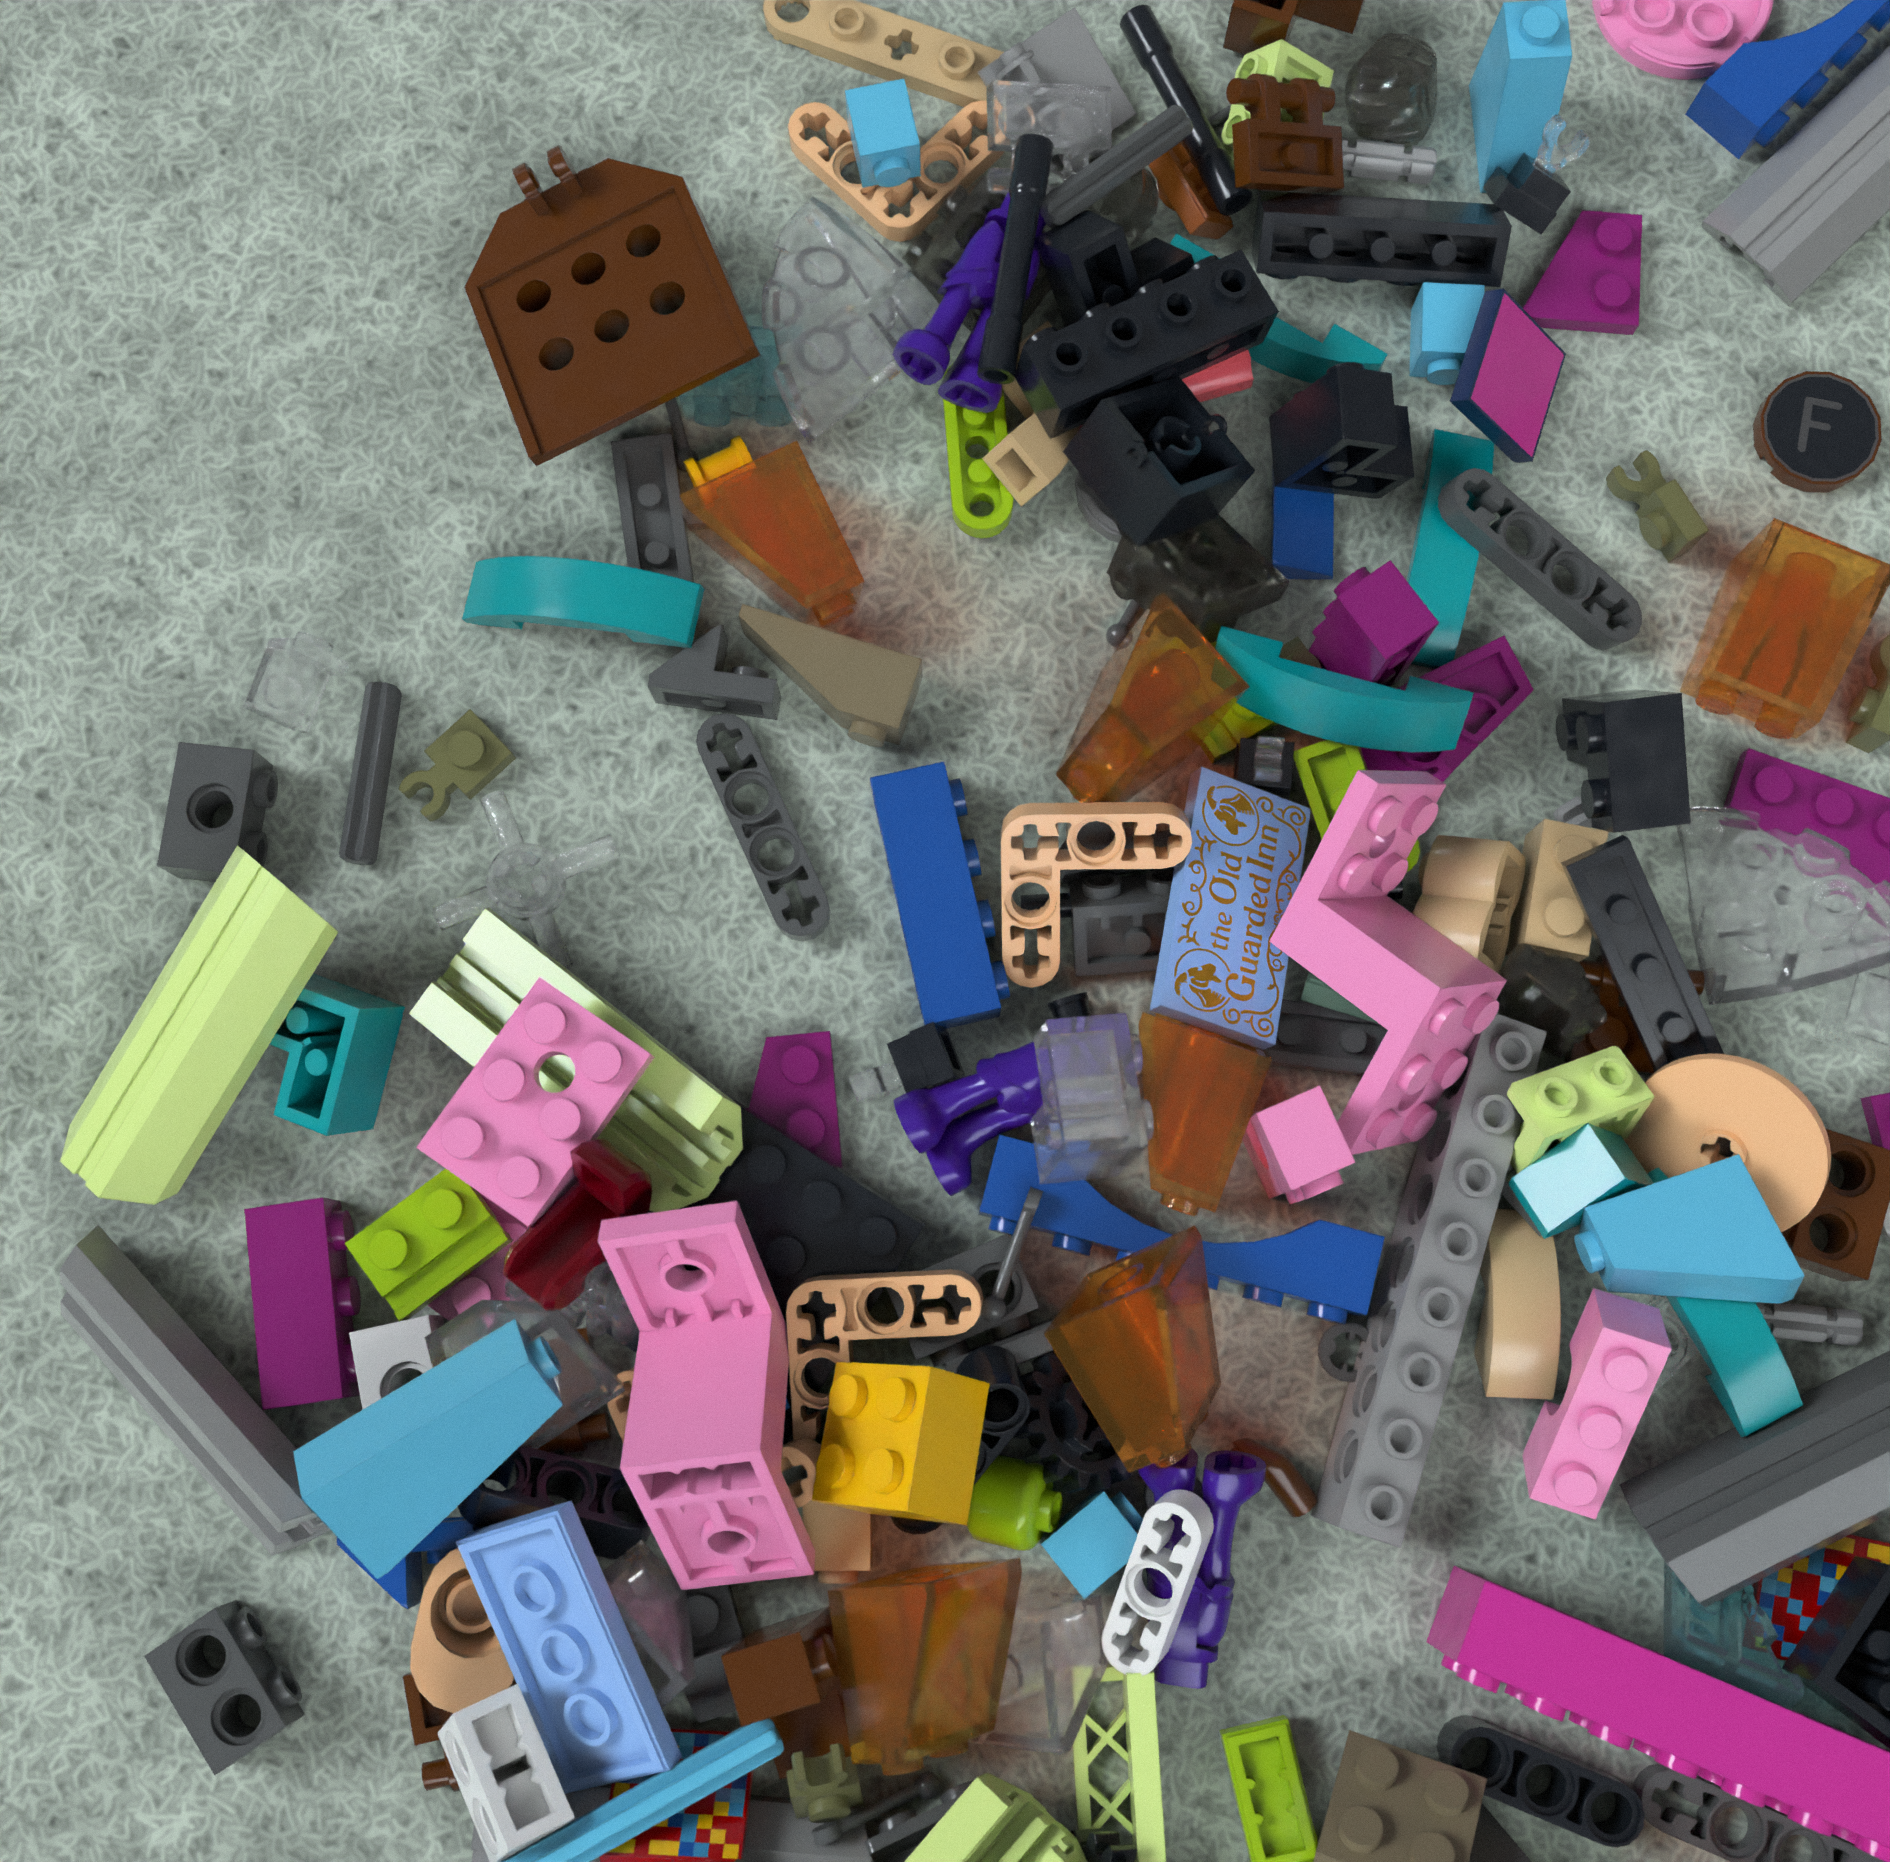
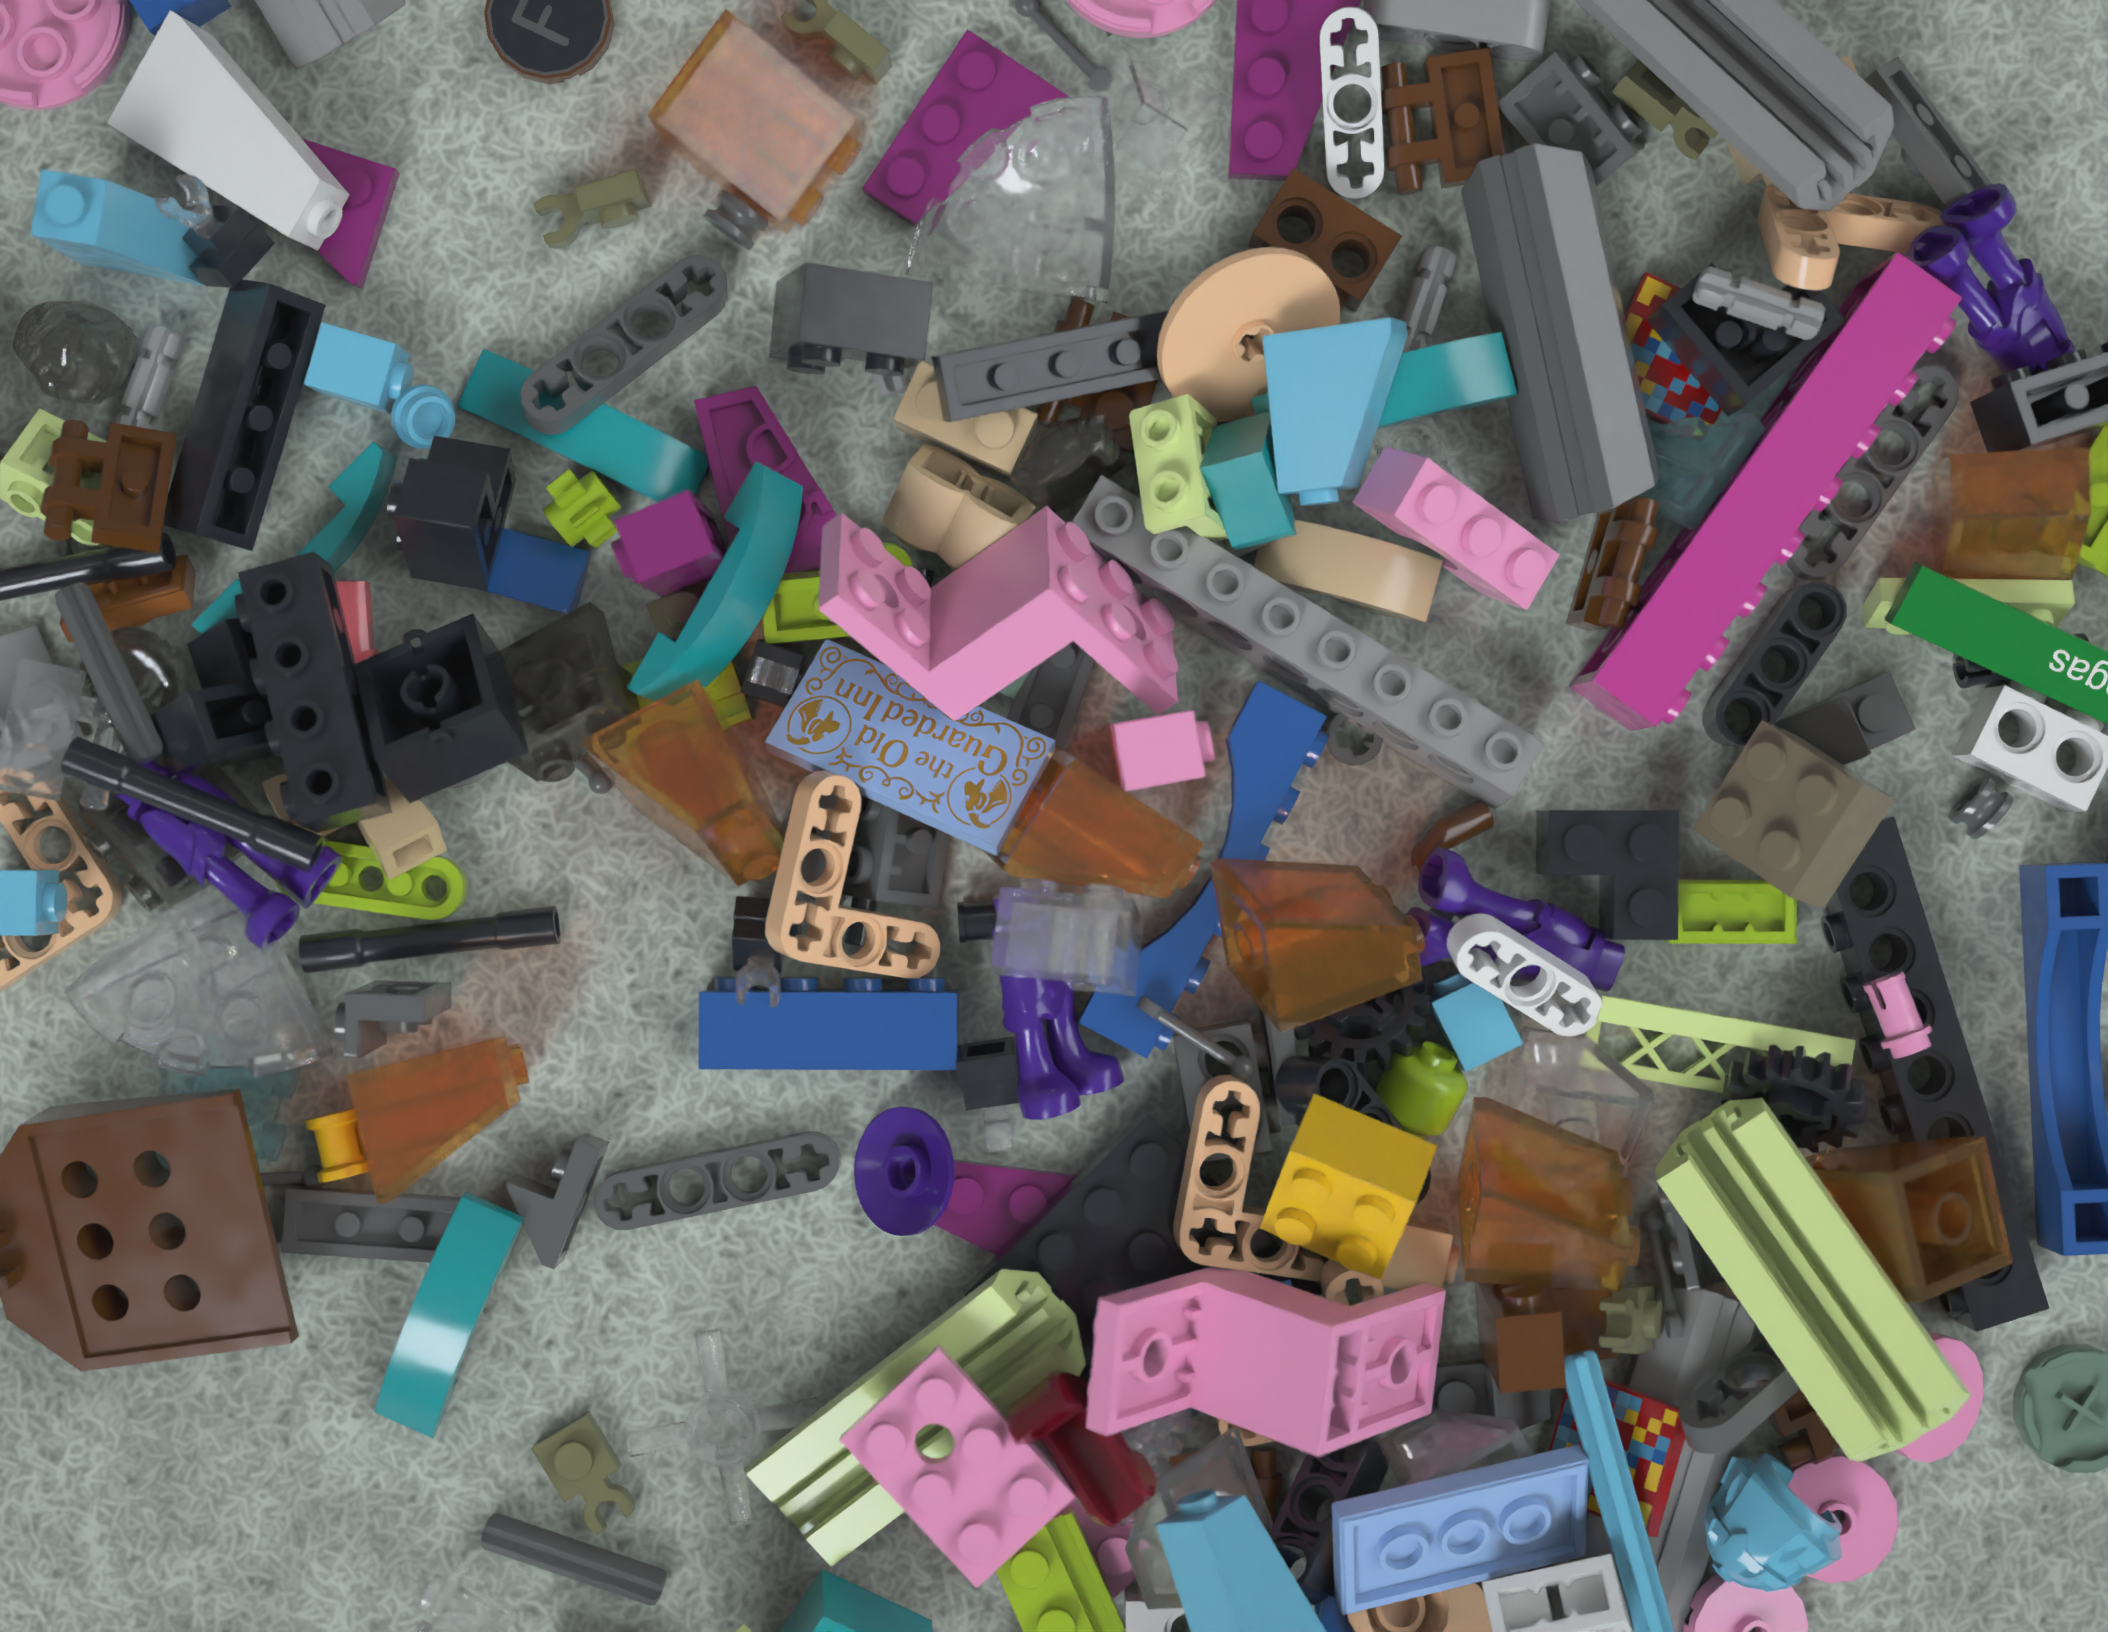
camera: 80 degrees left, 10 degrees up
(812, 999) = (904, 1171): none -> dark purple dish
(849, 679) = (590, 1061): dark tan slope -> none
(850, 466) = (387, 1008): none -> dark grey bracket
(955, 574) = (359, 947): none -> black piece
(988, 807) = (751, 952): none -> piece
(1305, 1669) = (1634, 861): none -> black brick
(1373, 548) = (582, 508): none -> lime gear
(1424, 395) = (422, 414): none -> medium azure plate
(1508, 376) = (424, 322): dark pink tile -> none
(1600, 1580) = (1613, 565): none -> reddish brown plate
(1638, 156) = (215, 124): none -> white slope
(1683, 638) = (736, 219): none -> dark grey bush

